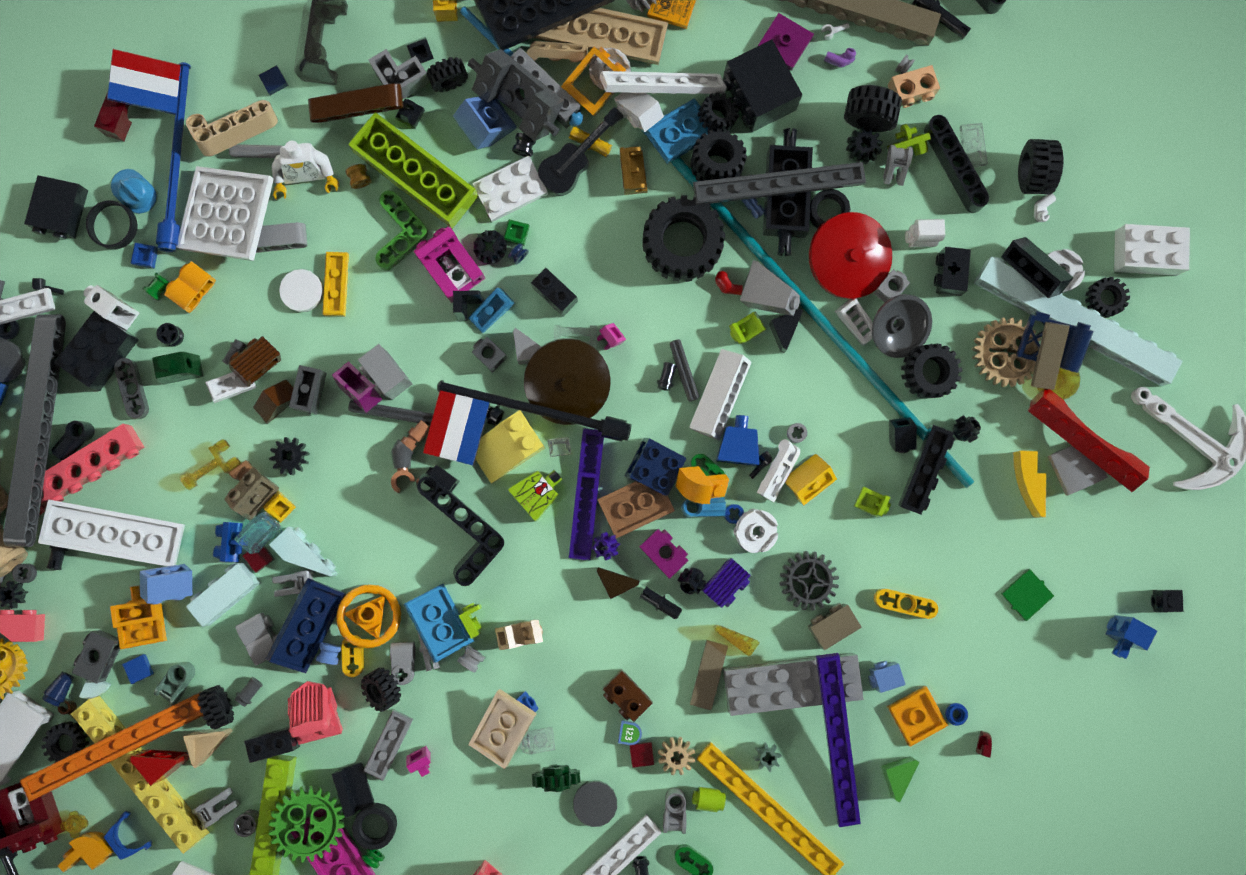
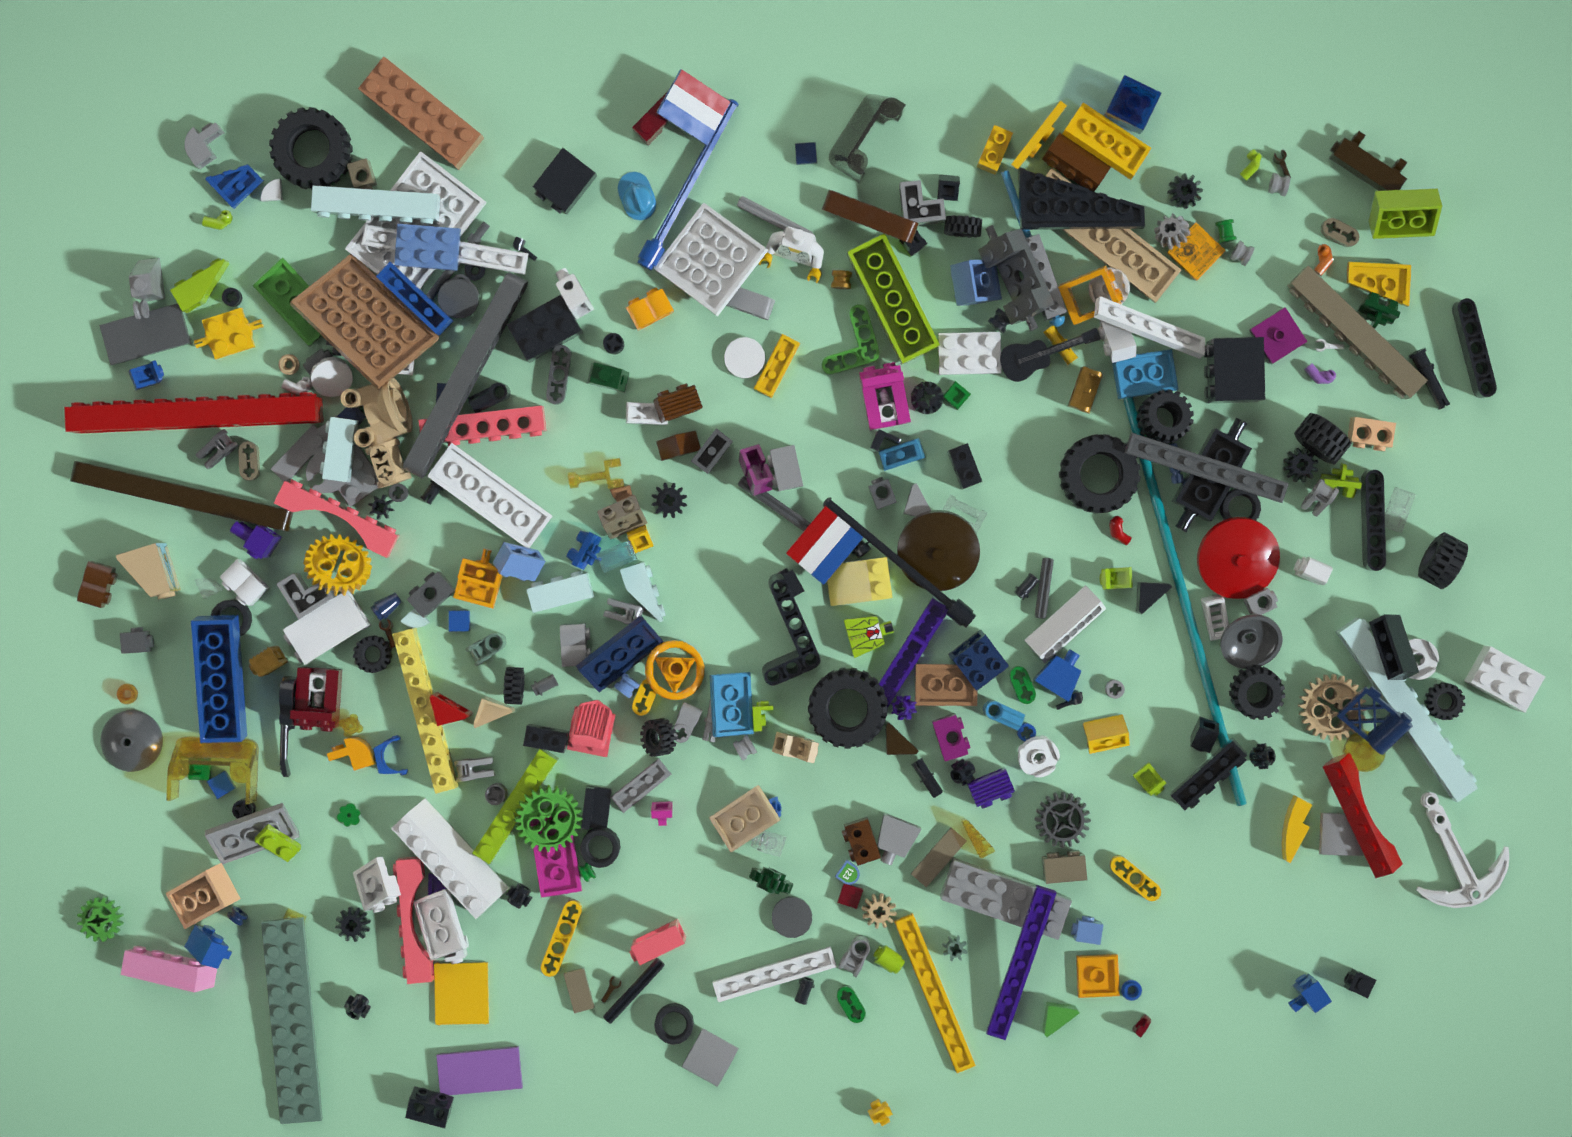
camera: 30 degrees right, 5 degrees up
(96, 210) = (585, 216): black tyre -> none
(111, 748) = (421, 679): orange tile -> none
(144, 255) = (621, 260): blue tile -> none
(156, 286) = (621, 295): green bush -> none
(232, 128) = (752, 180): tan beam -> none
(236, 346) = (664, 384): dark grey pin -> none
(259, 560) = (601, 578): dark red tile -> none
(403, 451) = (768, 543): piece -> none
(518, 254) = (948, 416): dark blue bush -> none
(530, 593) = (828, 728): none -> black tyre
(557, 51) = (1070, 250): tan plate -> none
(559, 446) = (904, 602): clear slope -> none
(611, 335) = (996, 528): dark pink tile -> none
(658, 675) = (896, 837): none -> light grey torso
(698, 487) = (1007, 697): light orange brick -> none
(721, 104) = (1195, 375): black tyre -> none
(768, 292) = (1150, 556): light grey slope -> none
(779, 470) = (1083, 714): white plate -> none
(904, 65) = (1373, 409): light grey bush -> none
(959, 262) = (1329, 607): black brick -> none
(1027, 595) = (1243, 921): green piece -> none
(1040, 208) = (1428, 594): white arm -> none
(1050, 355) = (1364, 729): dark tan tile -> none

